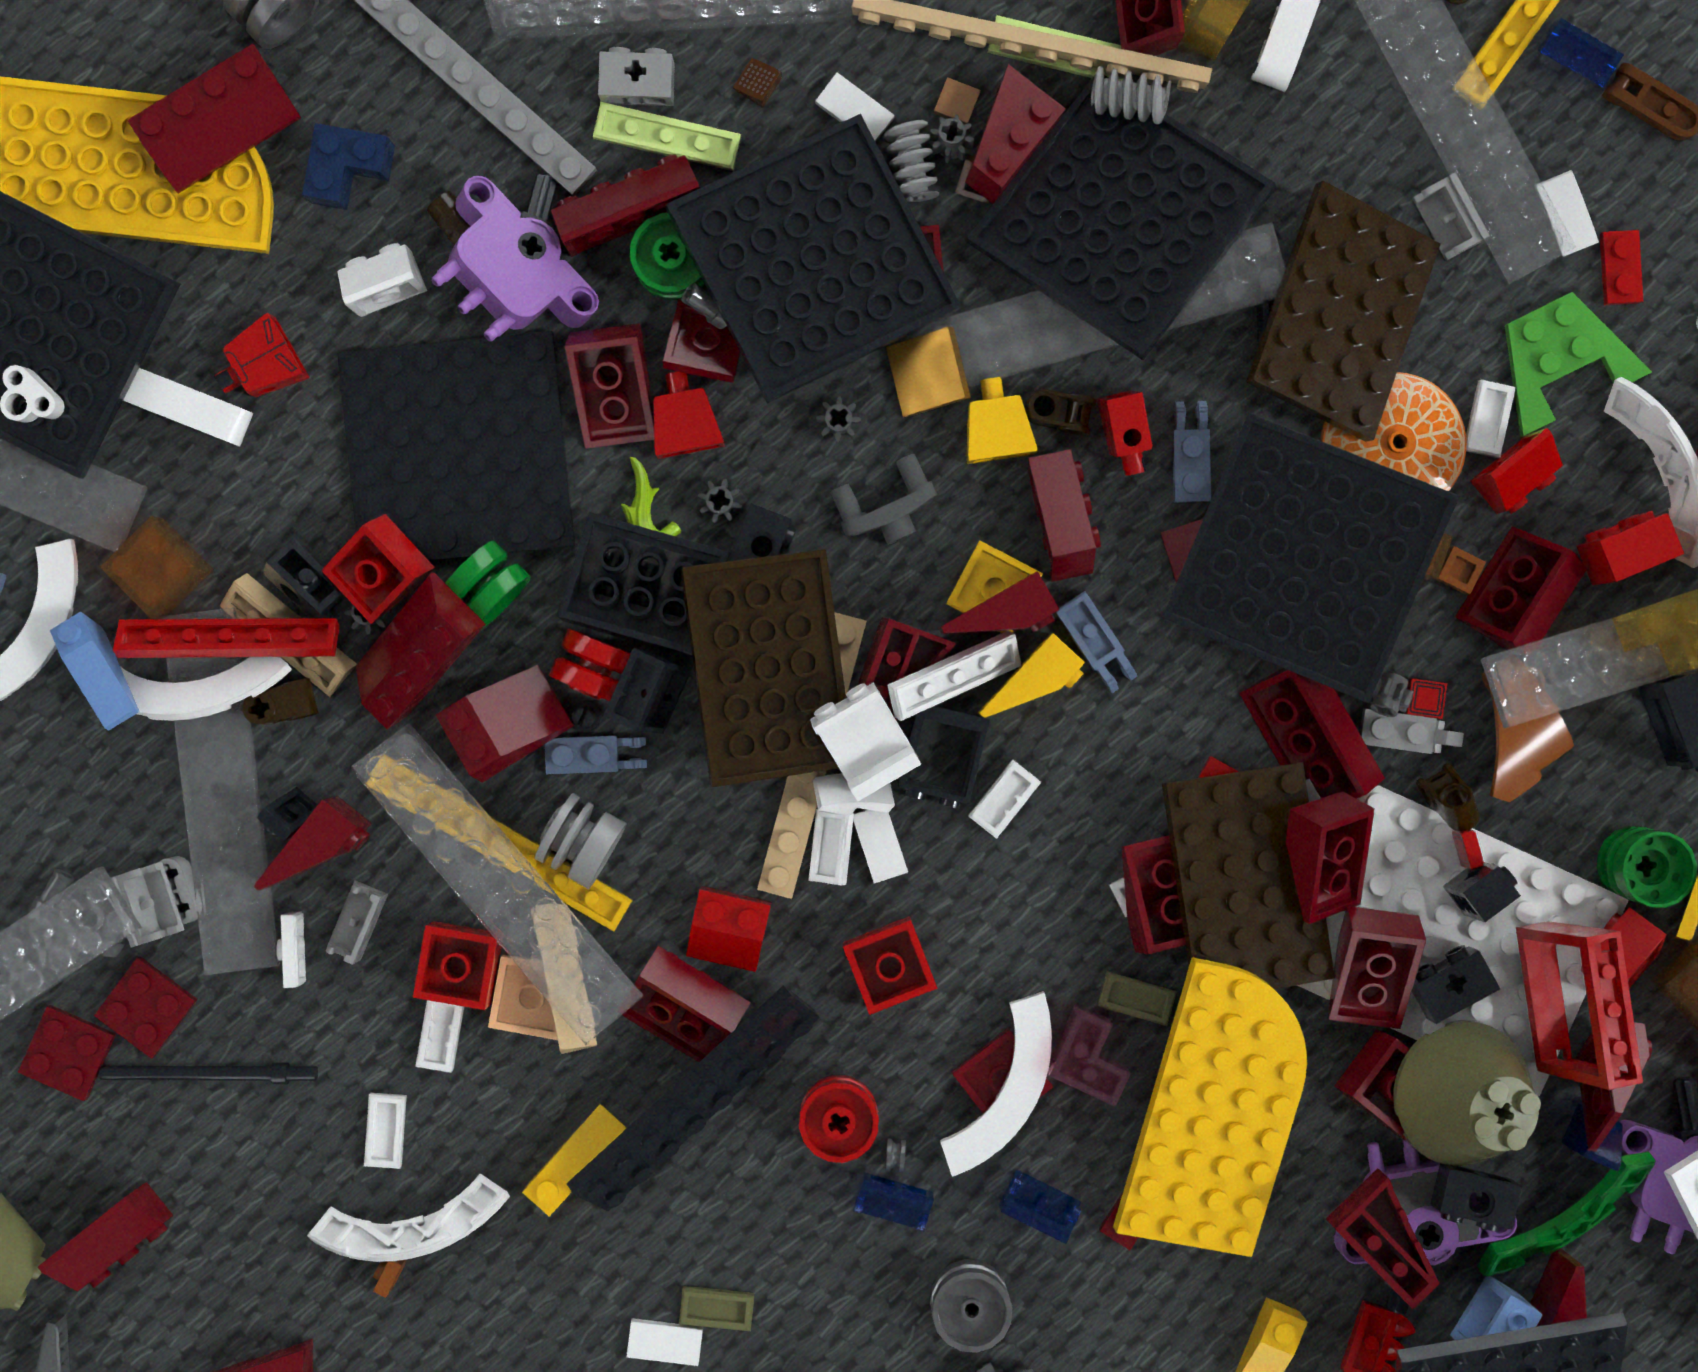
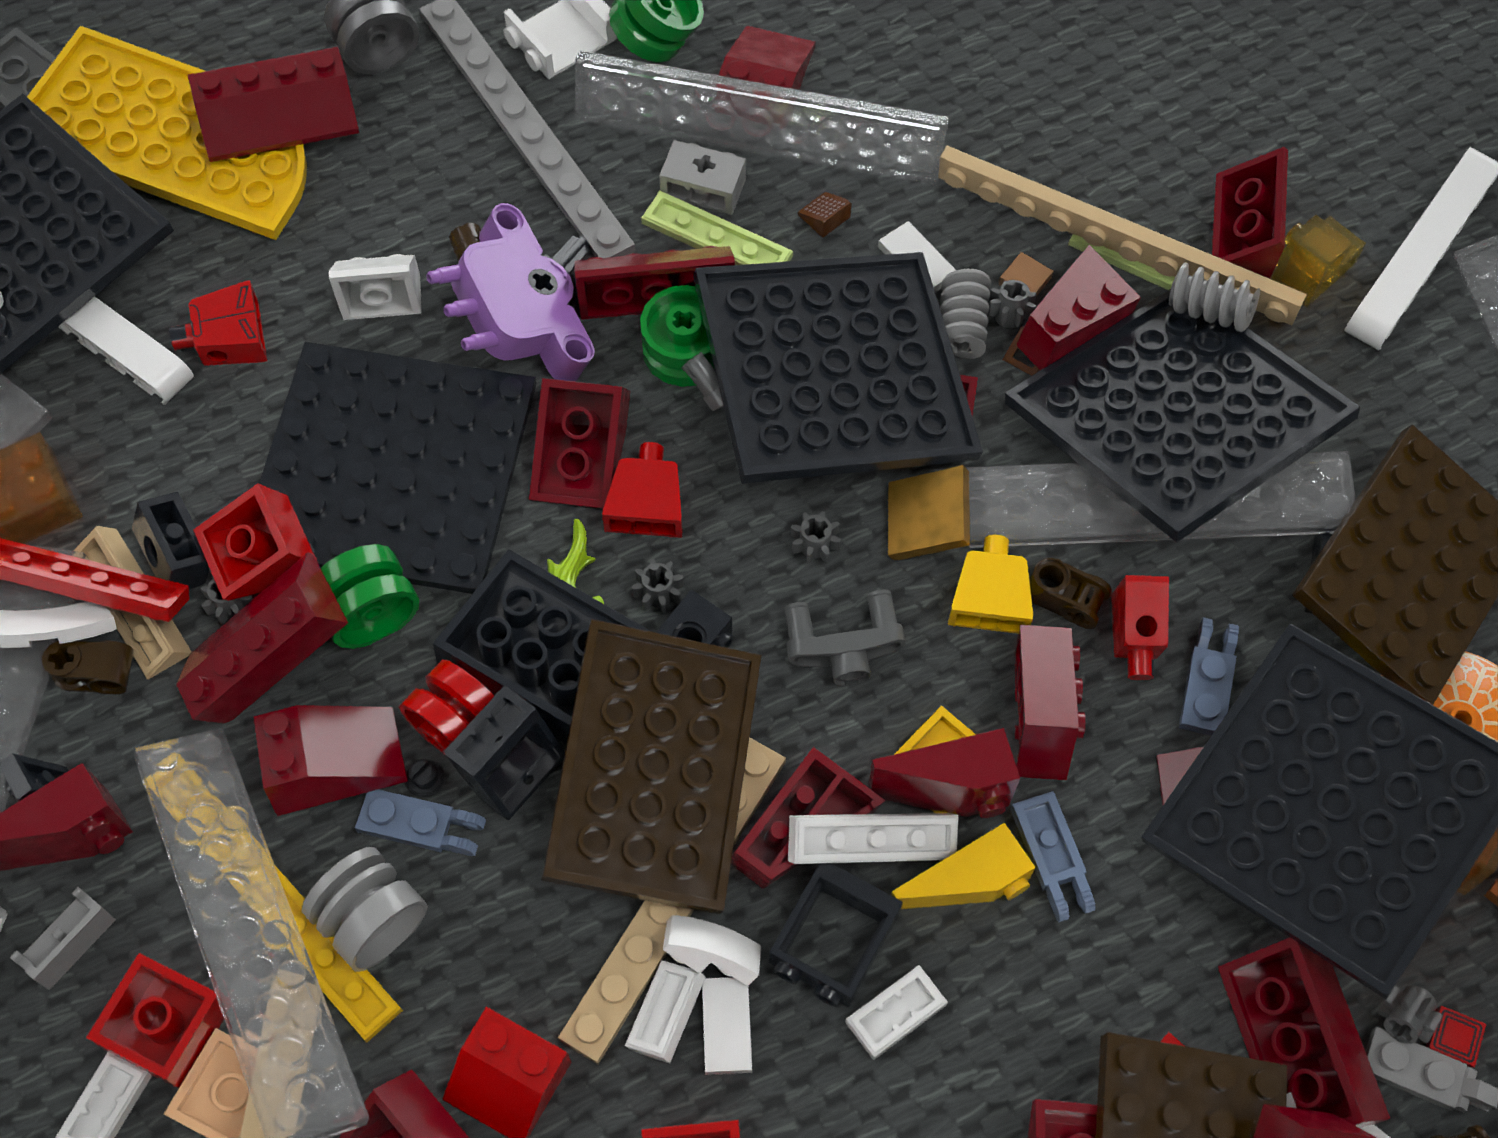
camera: 15 degrees right, 25 degrees down
(339, 155) = (384, 170): dark blue brick -> none
(700, 347) = (688, 425): dark red plate -> none
(865, 740) = (743, 872): white panel -> none

